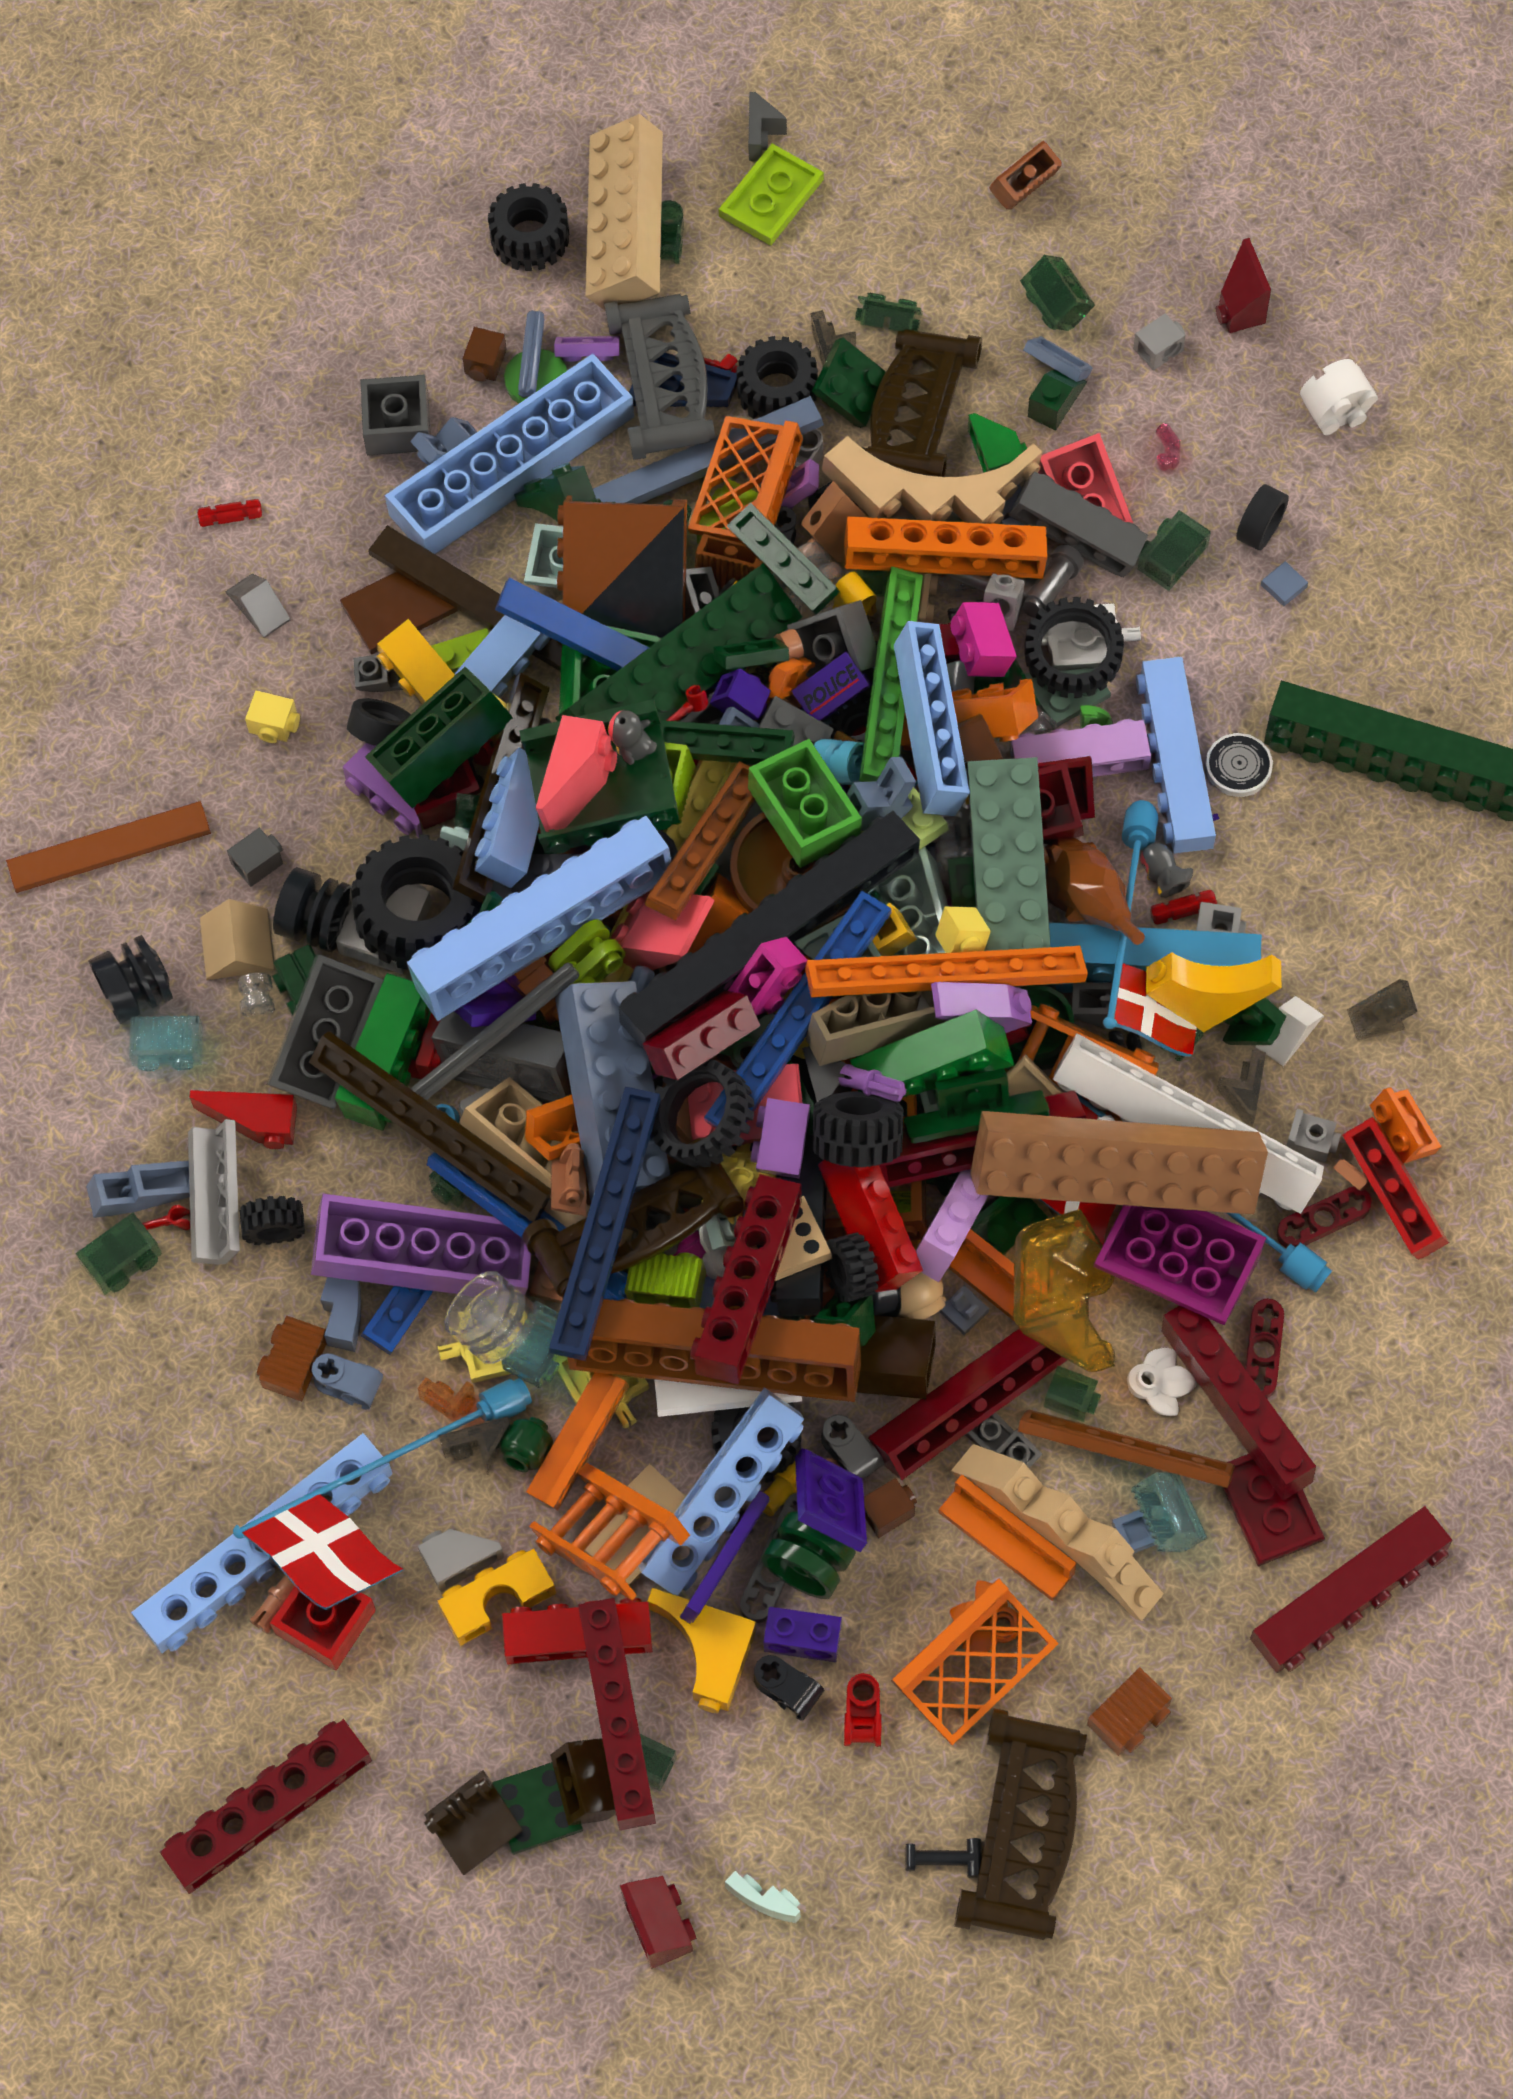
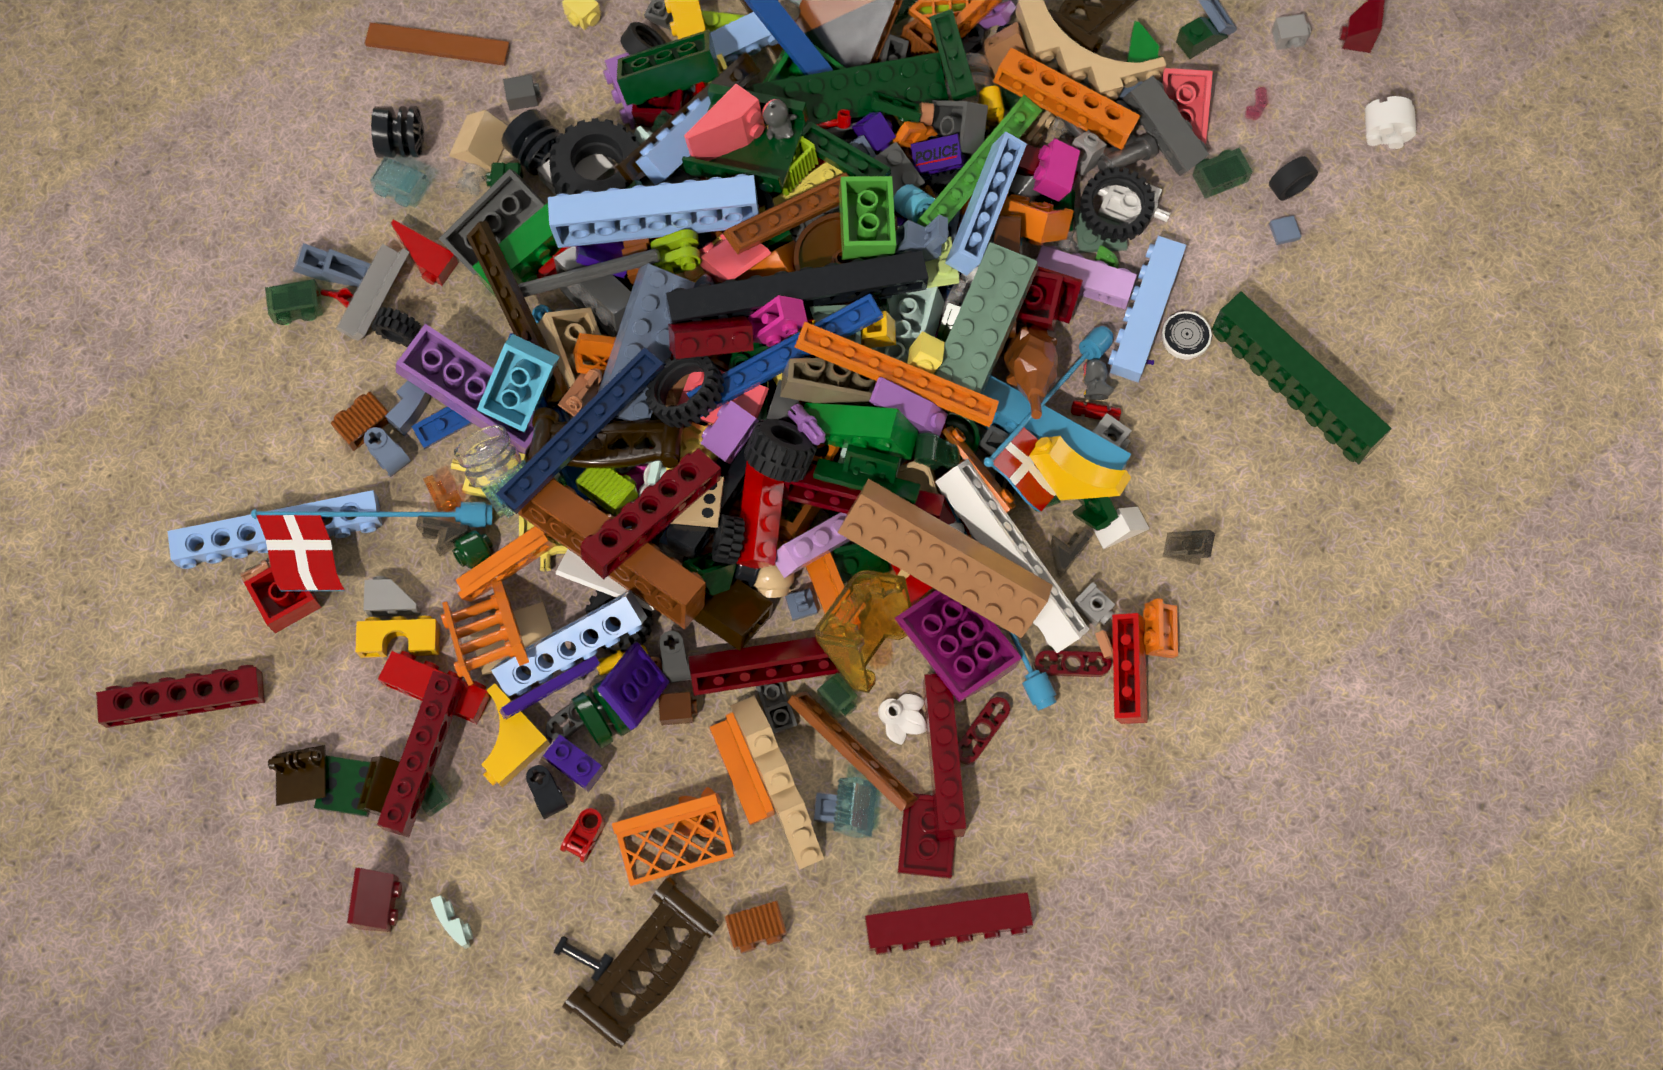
camera: 25 degrees right, 5 degrees up
(486, 1207) = (518, 382): none -> medium azure brick
(1036, 1042) = (935, 451): none -> clear green piece

